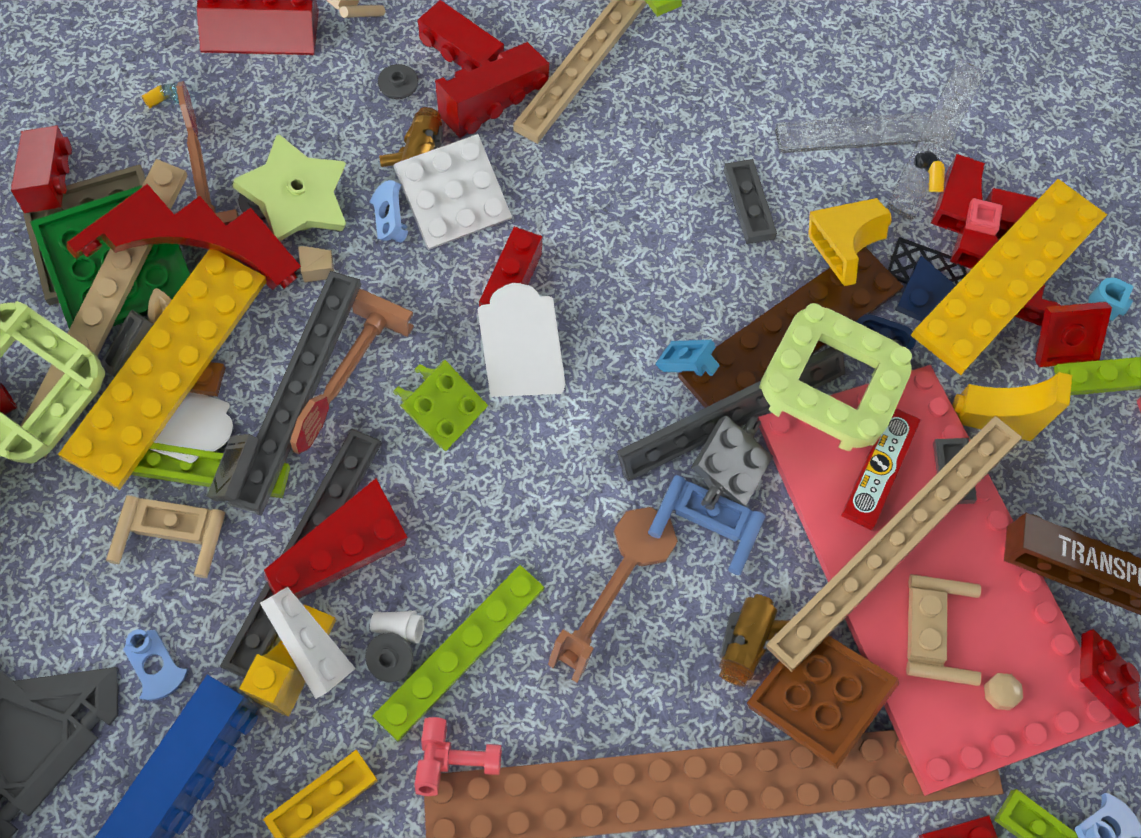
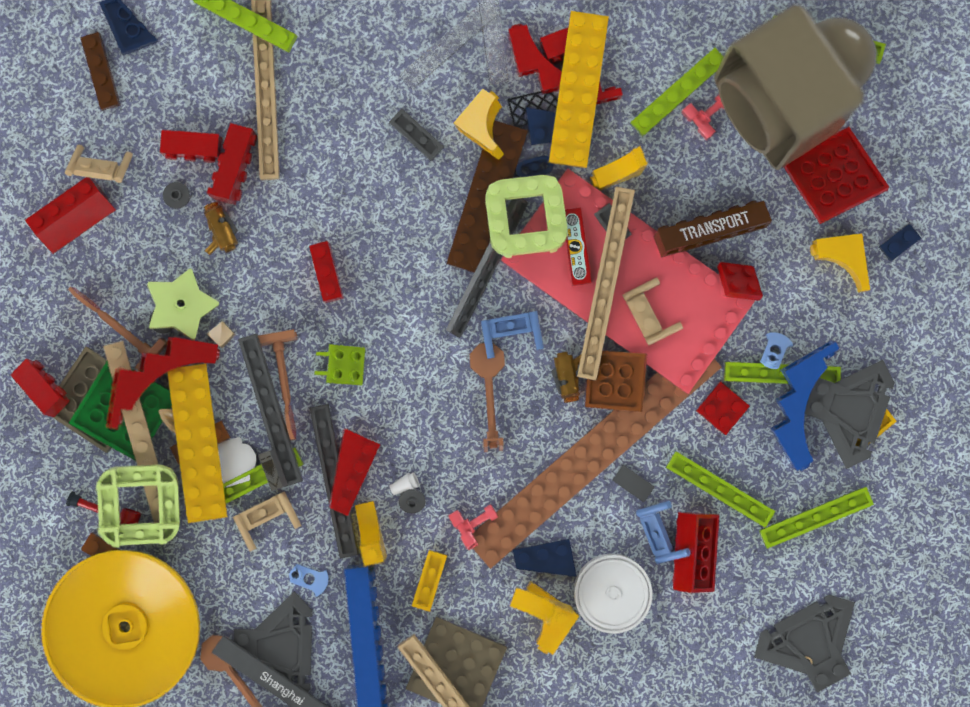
camera: 35 degrees left, 20 degrees up
(126, 341) = (168, 446): dark grey tile -> none
(160, 94) = (58, 292): arm -> none
(308, 644) = (375, 524): white wing -> none
(389, 226) = (226, 272): light blue piece -> none
(452, 191) = (260, 244): white plate -> none
(458, 653) = (440, 475): lime plate -> none
(521, 343) = (358, 305): white sticker -> none
(689, 356) = (446, 254): dark azure plate -> none
(731, 462) = (503, 295): plate -> none
(934, 167) = (503, 49): arm -> none
(984, 216) = (545, 62): coral tile -> none
(1003, 691) = (695, 323): tan tile -> none
(1072, 333) = (629, 102): red plate -> none
(1115, 293) = (637, 62): medium azure plate -> none

